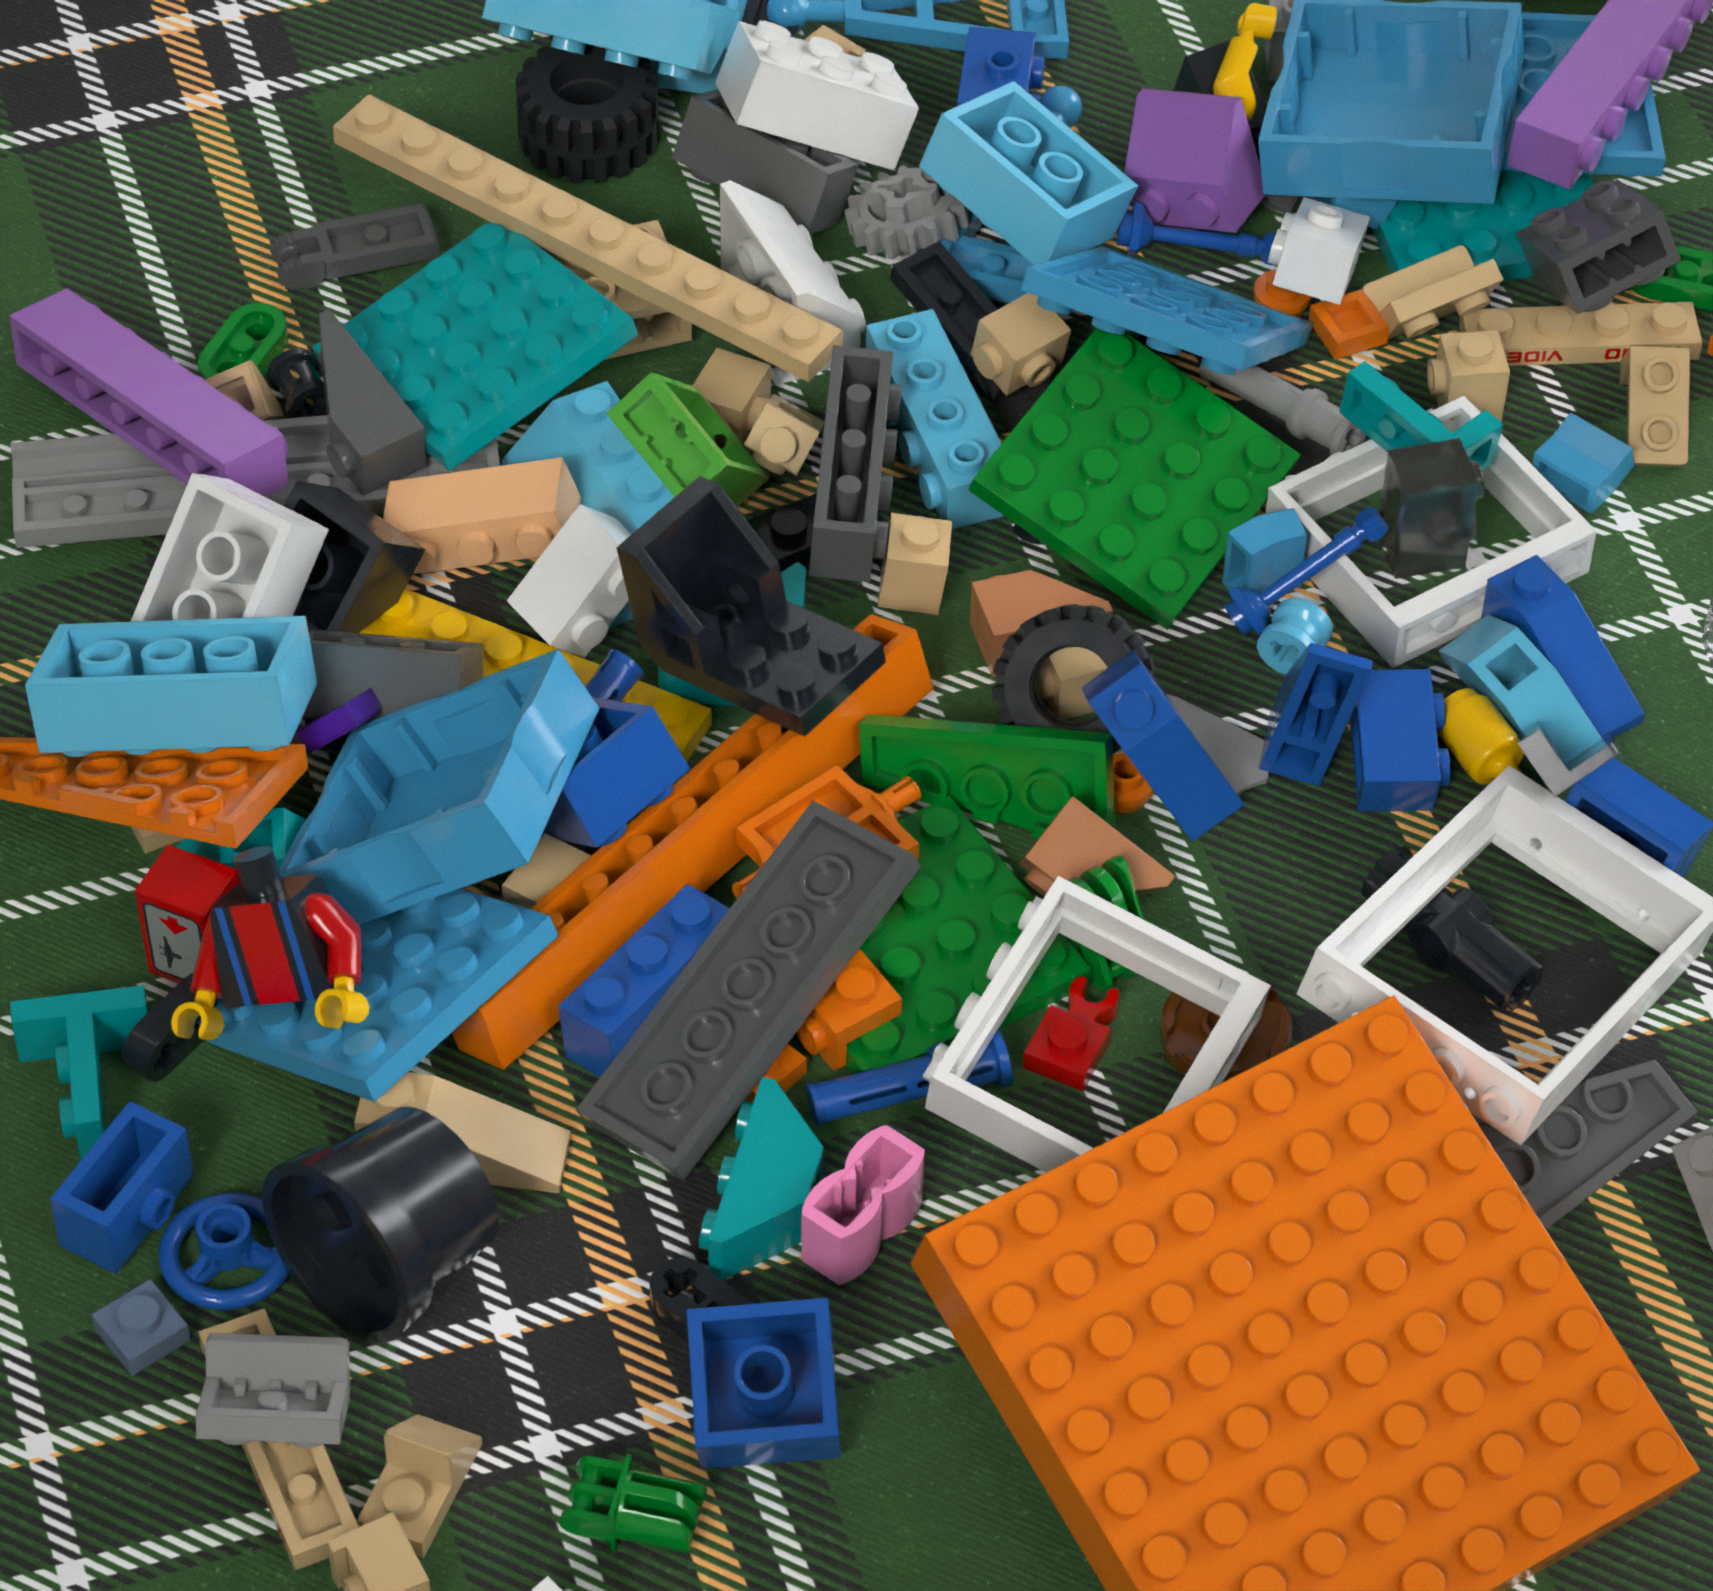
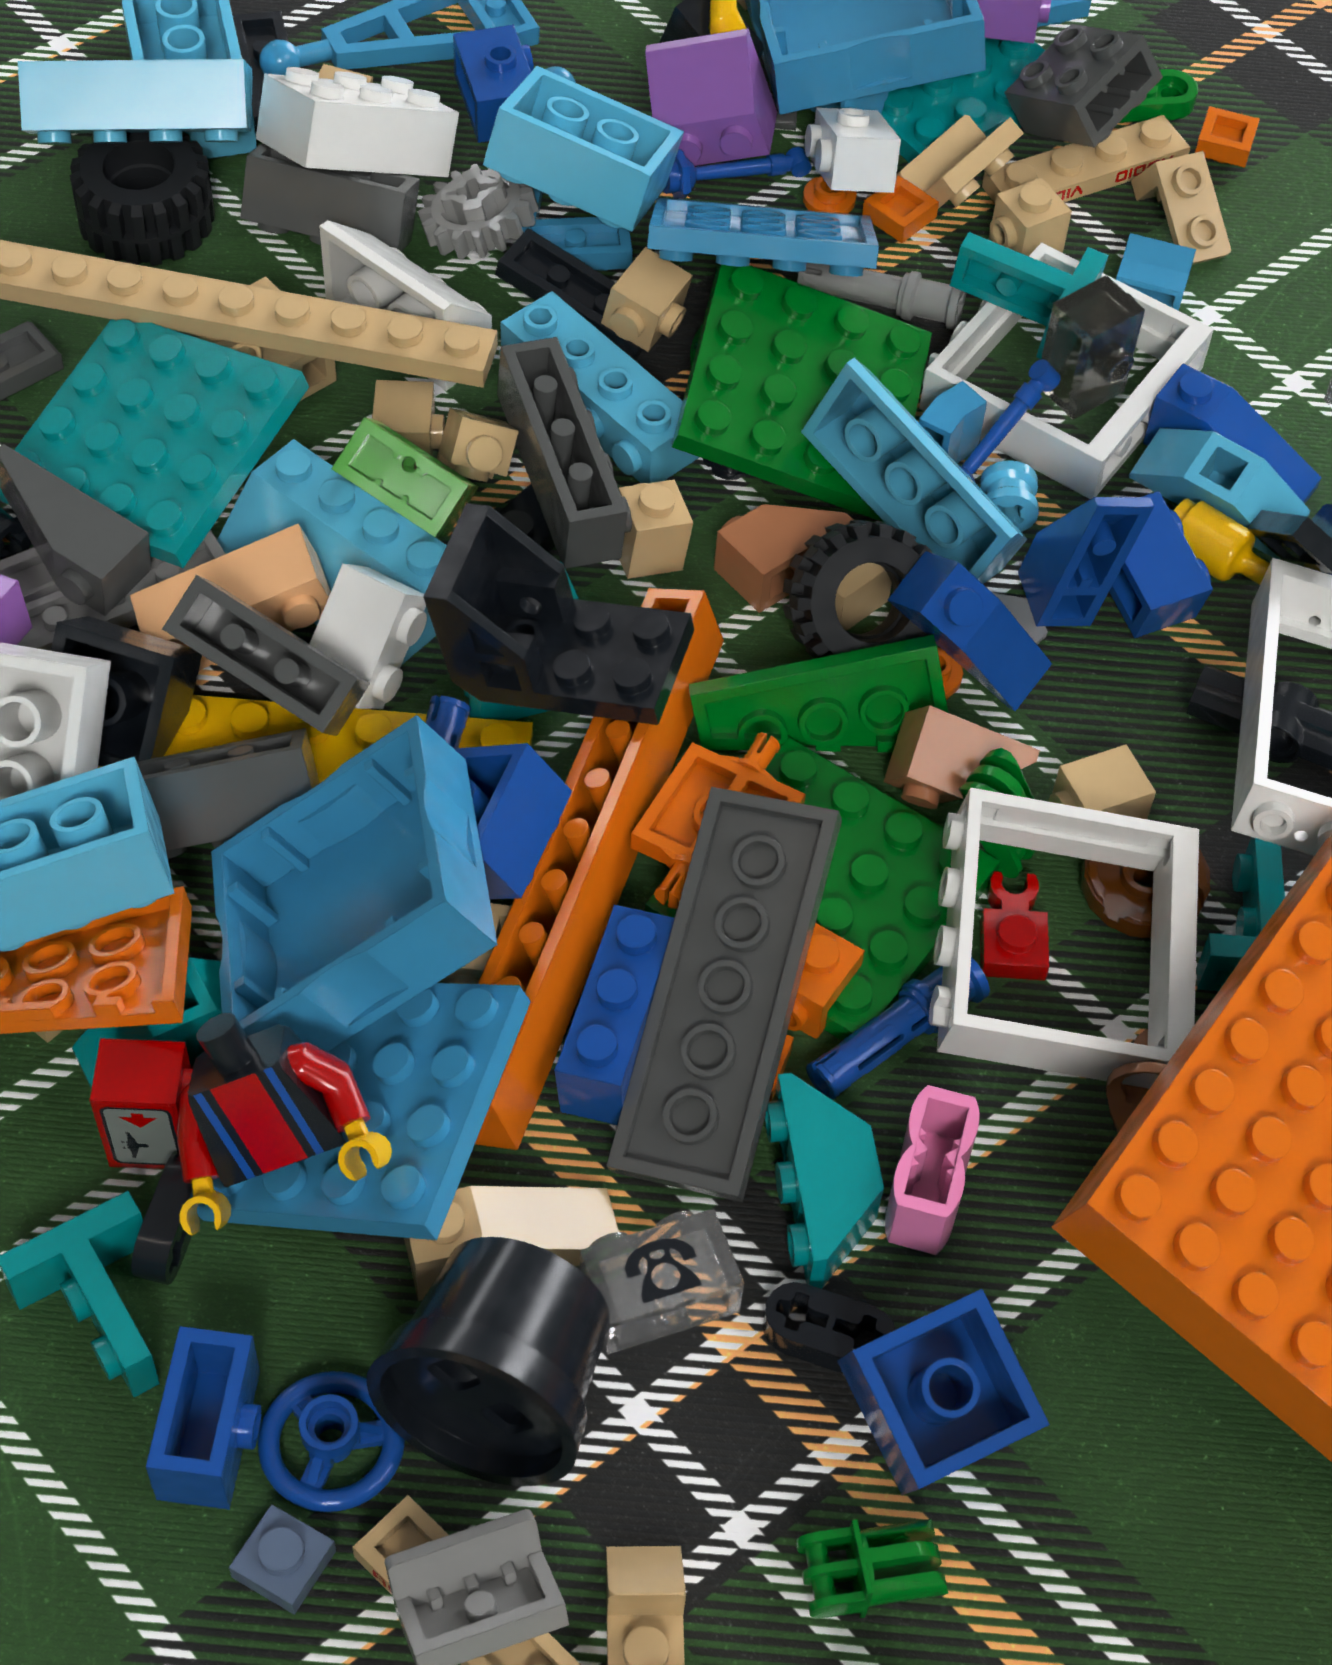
camera: 25 degrees left, 5 degrees up
(337, 721) = (199, 847): dark purple tile -> none
(475, 568) = (266, 656): none -> dark grey brick
(571, 1217) = (664, 1278): none -> clear brick
(1187, 588) = (909, 474): none -> medium azure slope
(1228, 929) = (1105, 783): none -> tan brick

